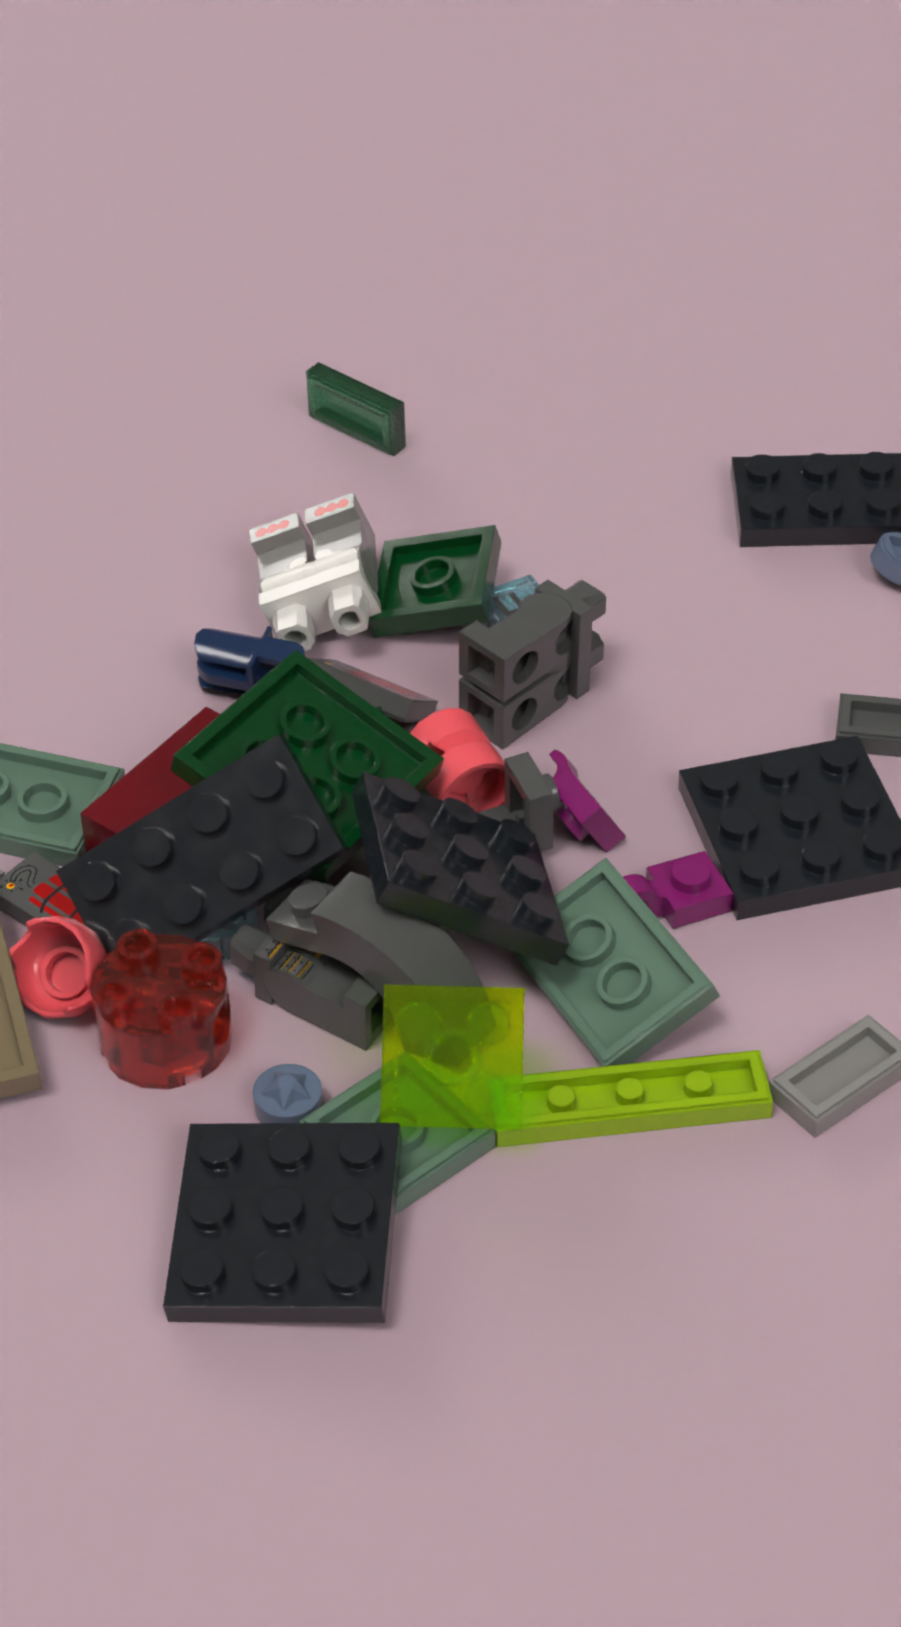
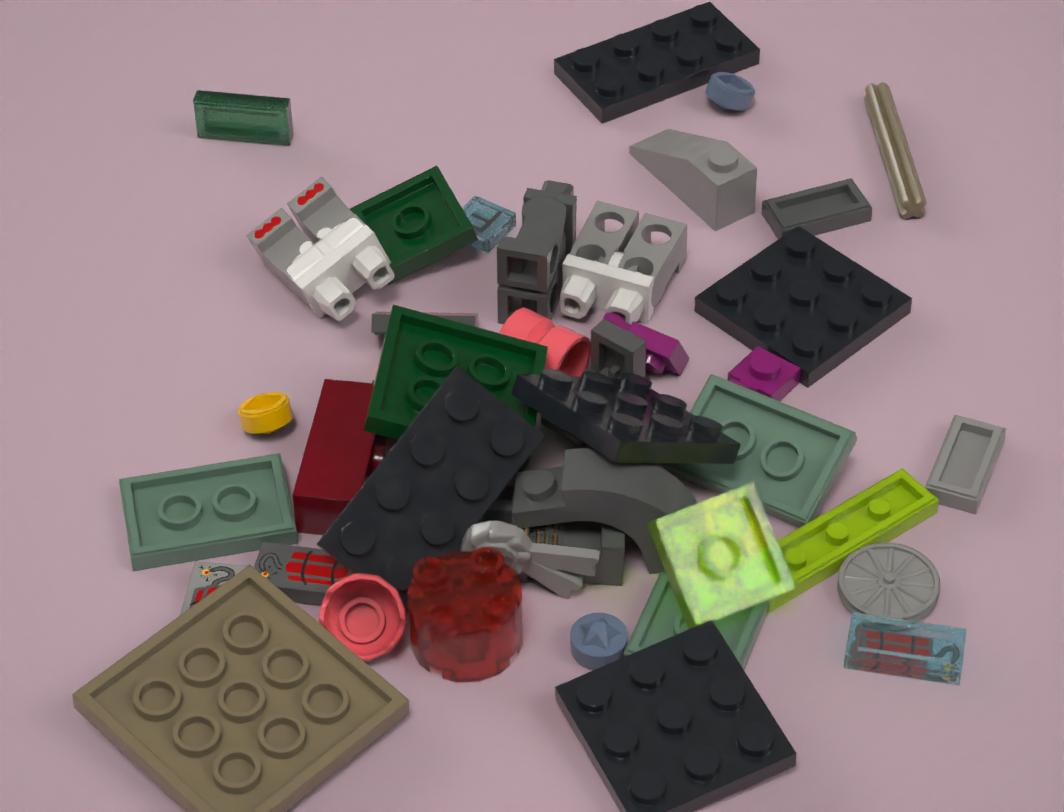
camera: 30 degrees left, 0 degrees up
(141, 722) = (265, 413): none -> yellow tile
(238, 661) = (321, 339): dark blue arm -> none
(248, 964) = (551, 565): none -> light grey piece
(608, 1250) = (905, 648): none -> clear light blue tile
(620, 707) = (621, 268): none -> hips
(646, 1172) = (889, 582): none -> light grey wheel
(792, 642) = (702, 174): none -> light grey slope

